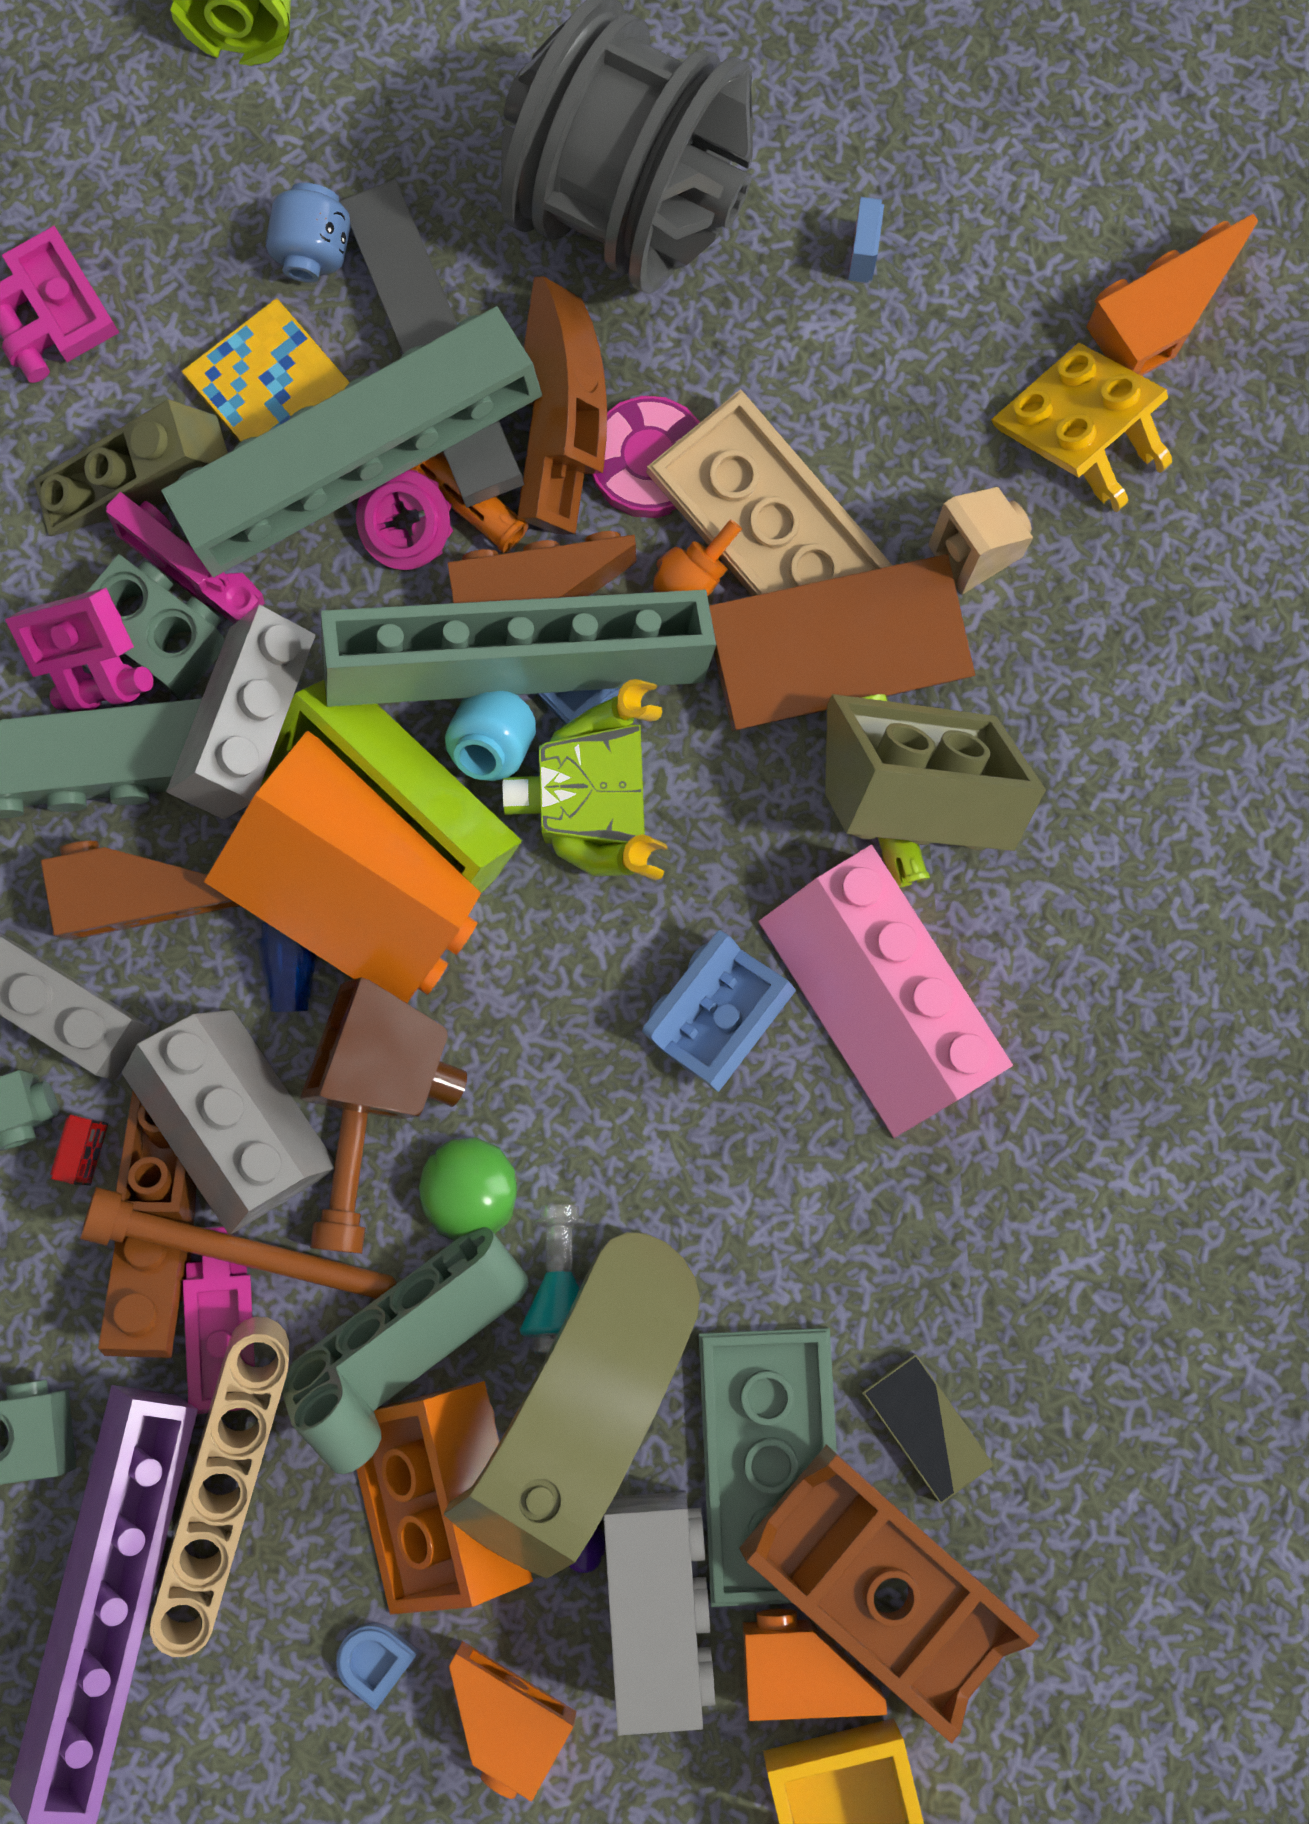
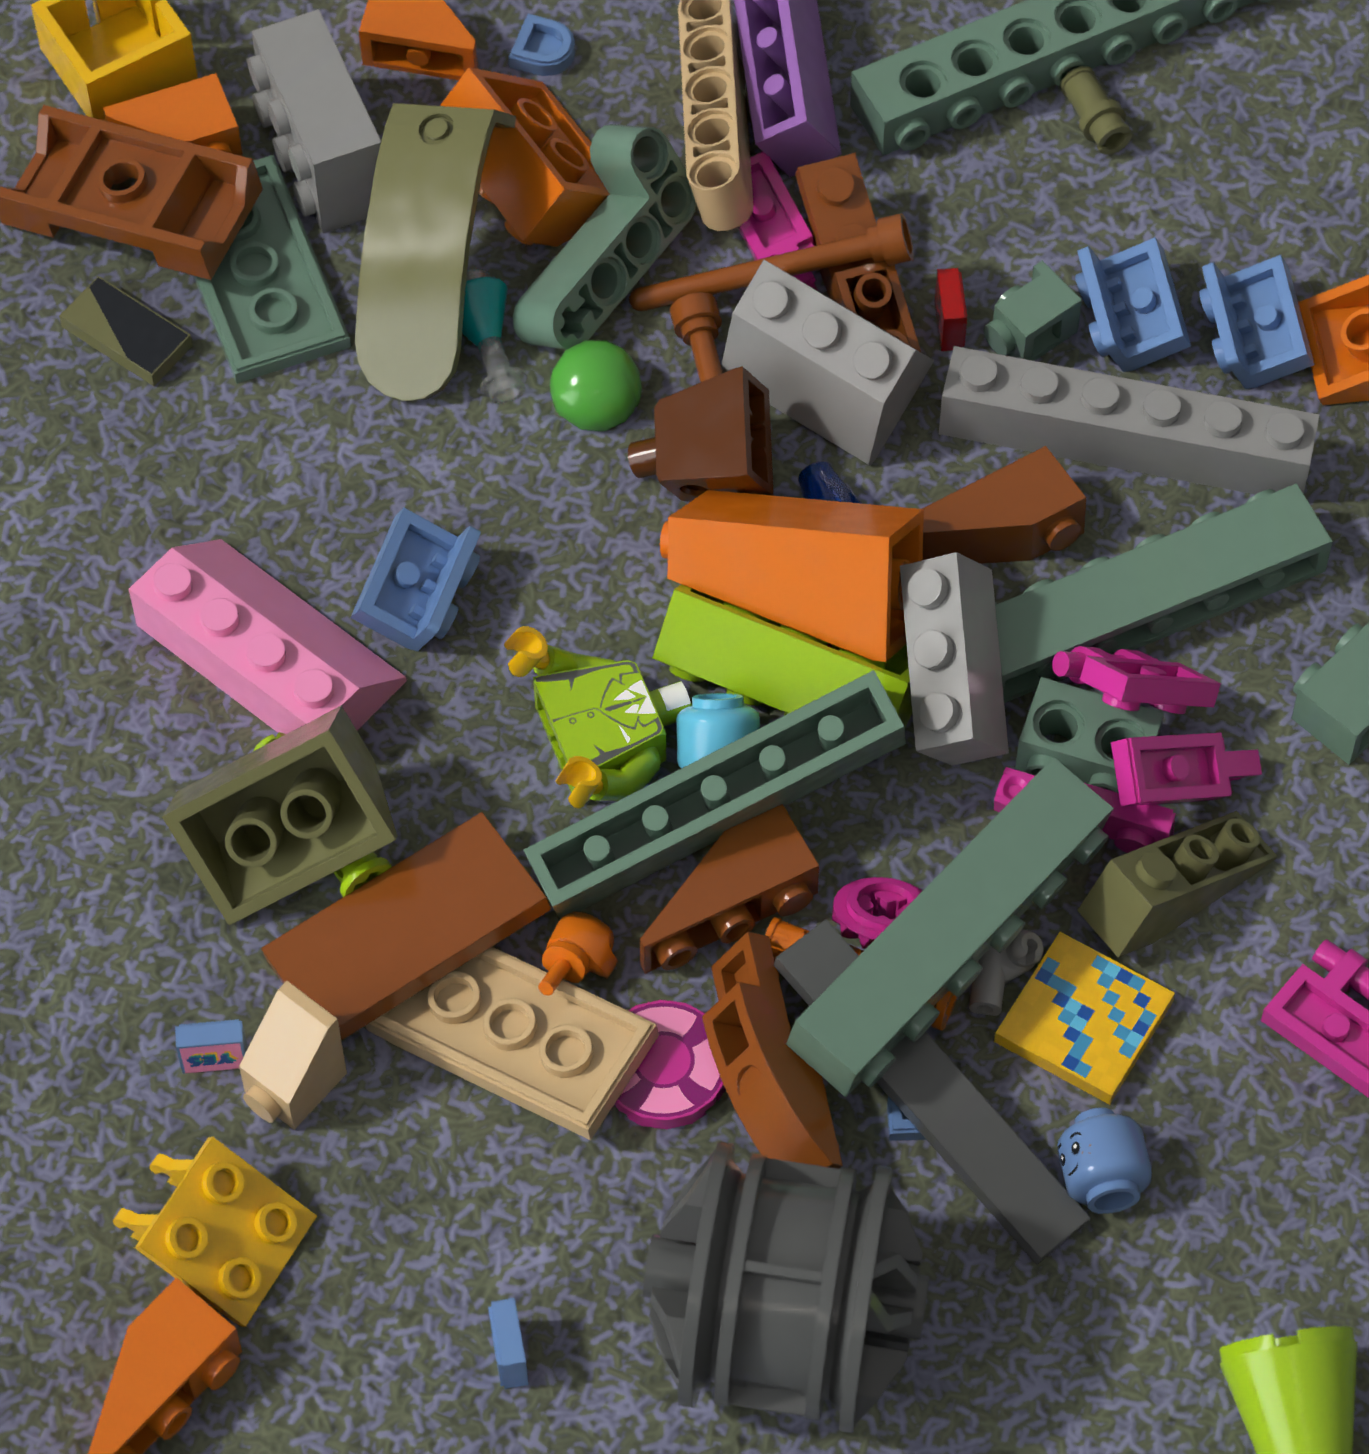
camera: 160 degrees right, 20 degrees down
(81, 545) = (1179, 768): none -> dark pink hinge
(1046, 587) = (210, 1045): none -> tile

